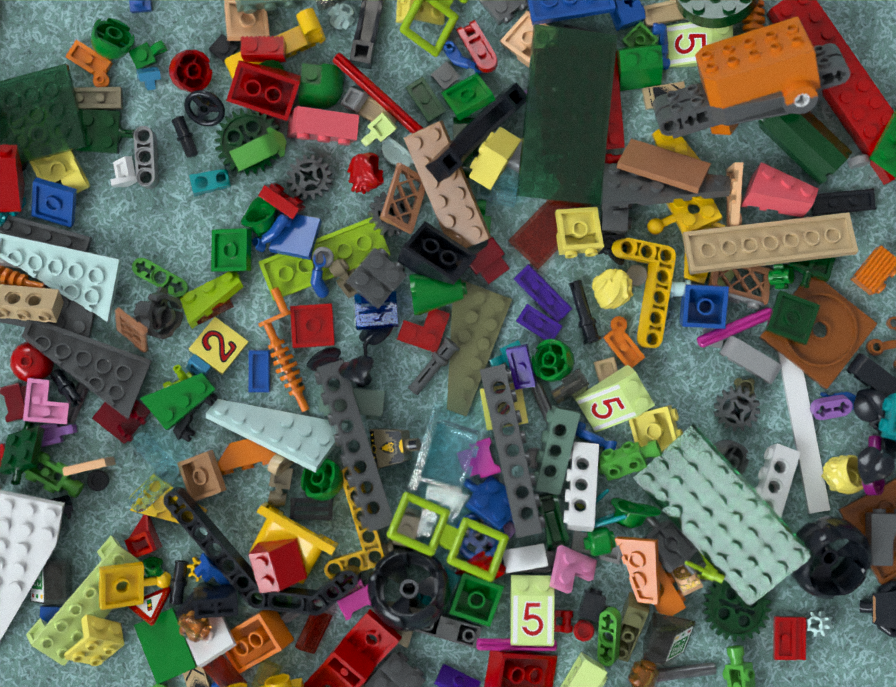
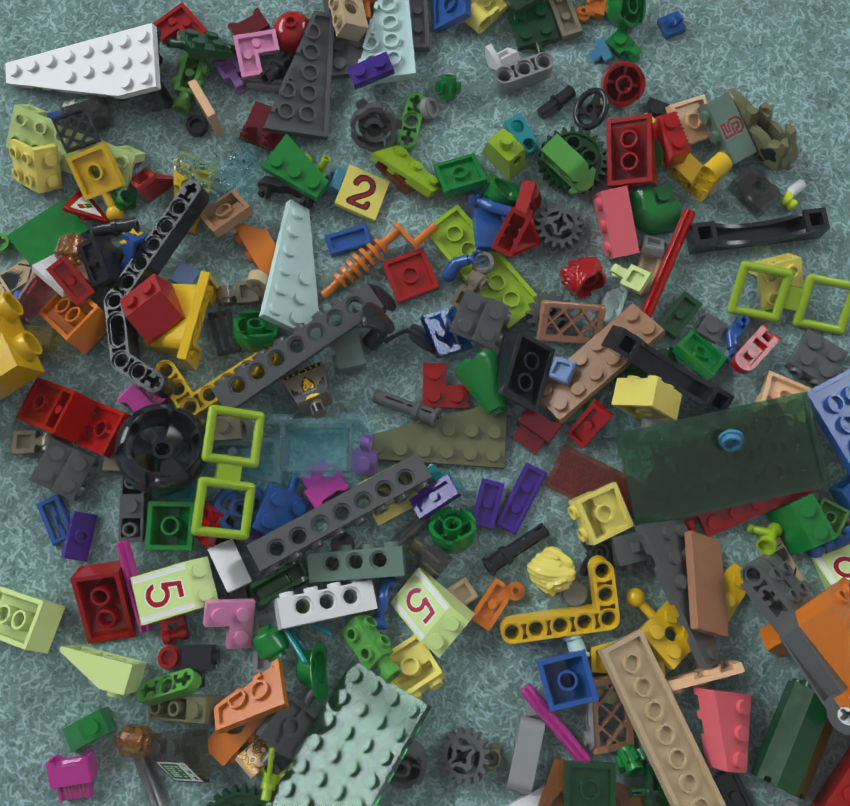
camera: 75 degrees right, 10 degrees down
(58, 595) = (70, 115): none -> black window
(102, 300) = (370, 70): none -> dark purple plate
(132, 330) = (350, 105): nougat window -> none
(137, 232) = (448, 86): none -> green gear
(153, 257) = (429, 108): none -> light grey tile
(224, 202) = (503, 151): none -> lime torso
(226, 632) = (71, 280): none -> red plate
(246, 529) = (185, 274): none -> medium blue tile
(308, 220) = (516, 234): none -> red slope
(313, 632) = (96, 371): clear red plate -> none
(341, 16) = (731, 207): light aqua gear -> none
(445, 221) = (562, 370): none -> medium blue tile
(466, 416) = (365, 459): none -> medium lavender plate
(499, 213) = (589, 424): none -> red plate
(556, 103) = (731, 440): none -> dark azure plate
(647, 102) = (767, 542): none -> lime piece

